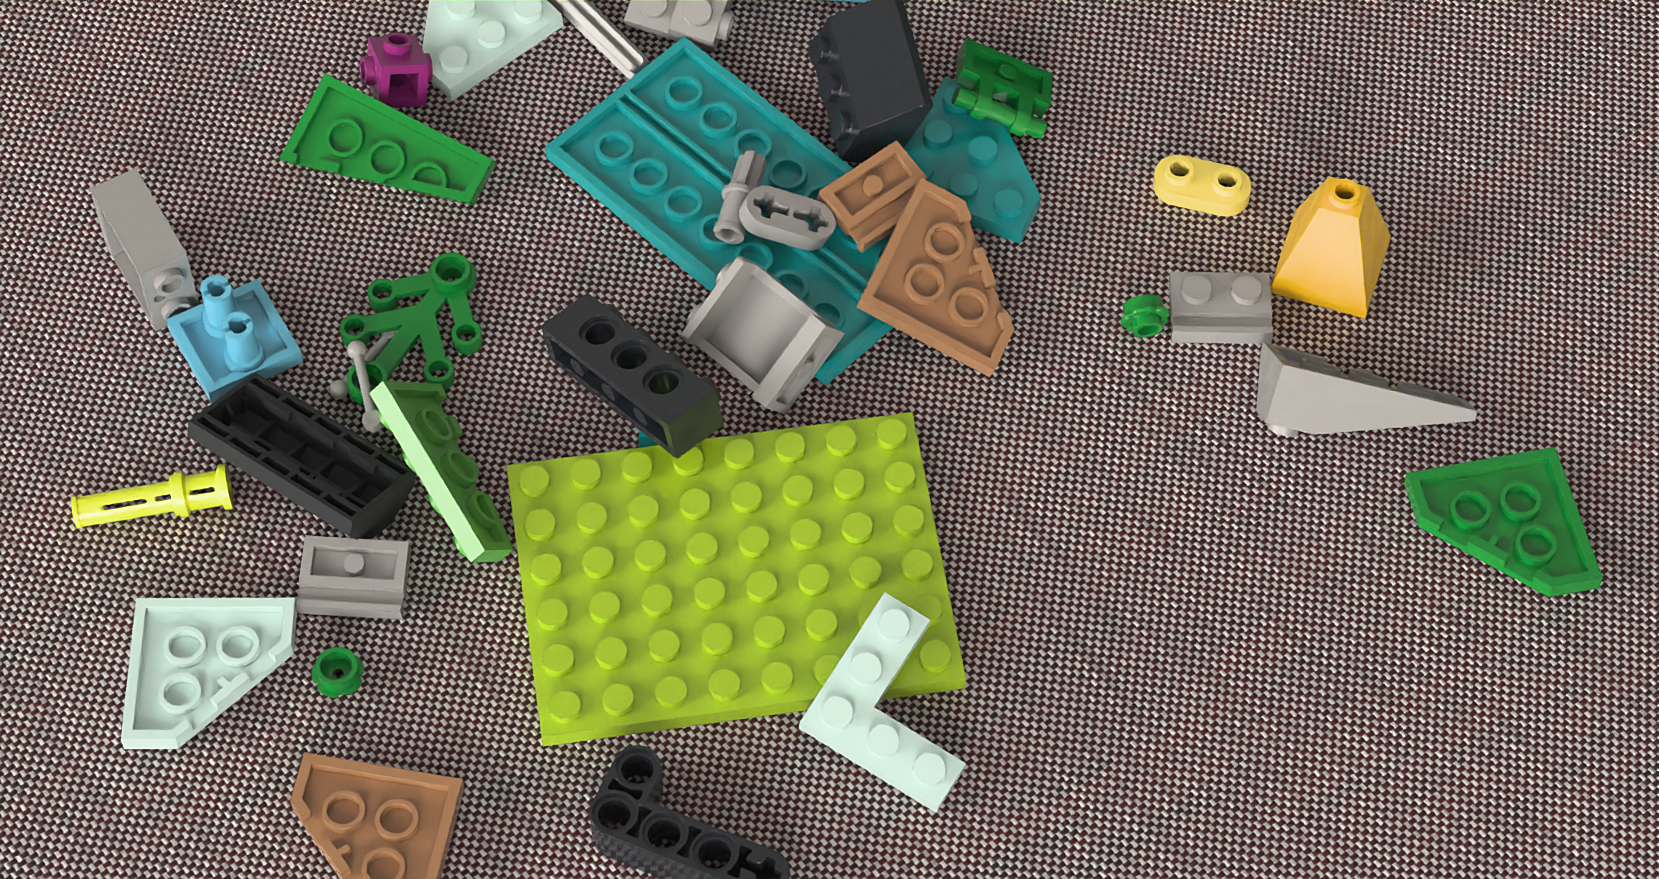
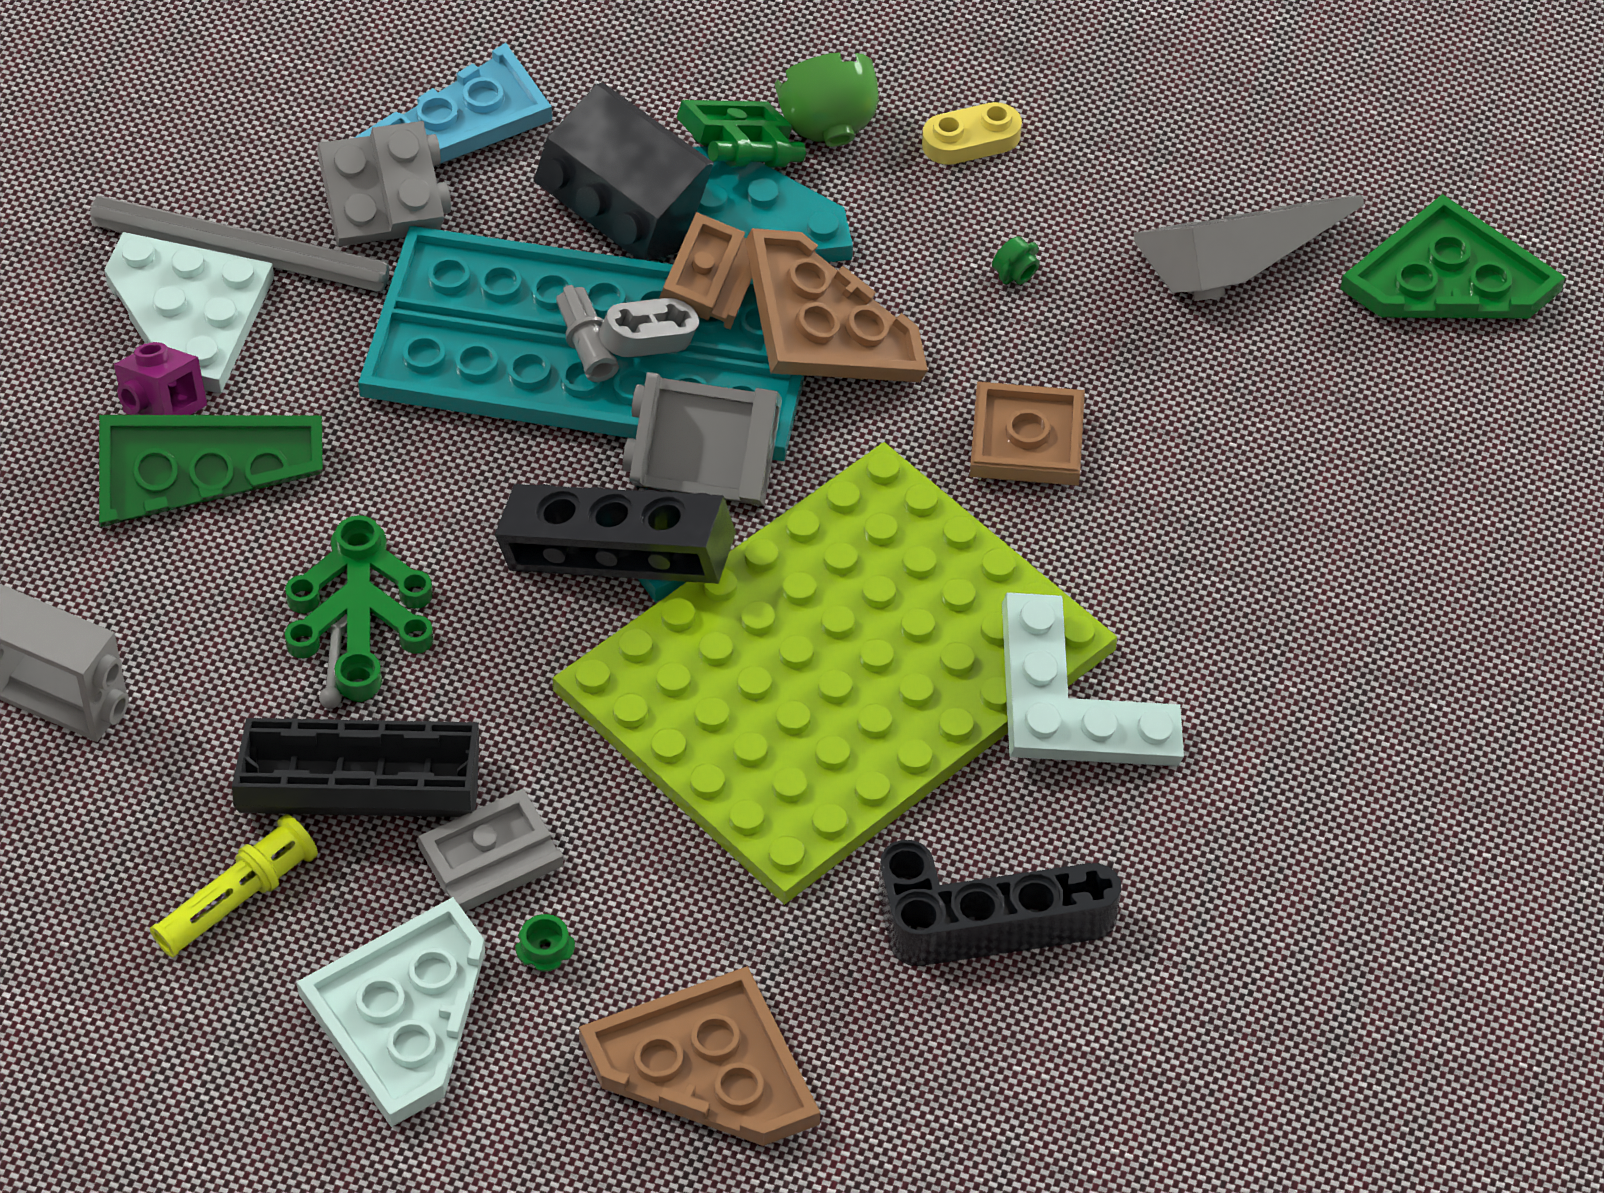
camera: 35 degrees left, 5 degrees down
(233, 336) = (192, 703): medium azure plate -> none
(371, 420) = (396, 699): light grey hinge -> none
(432, 452) = (464, 684): bright green wing -> none
(1034, 467) = (1027, 433): none -> medium nougat plate
(1094, 98) = (829, 97): none -> bright green cylinder
(1220, 307) = (1072, 224): light grey plate -> none
(1334, 249) = (1131, 124): yellow slope -> none

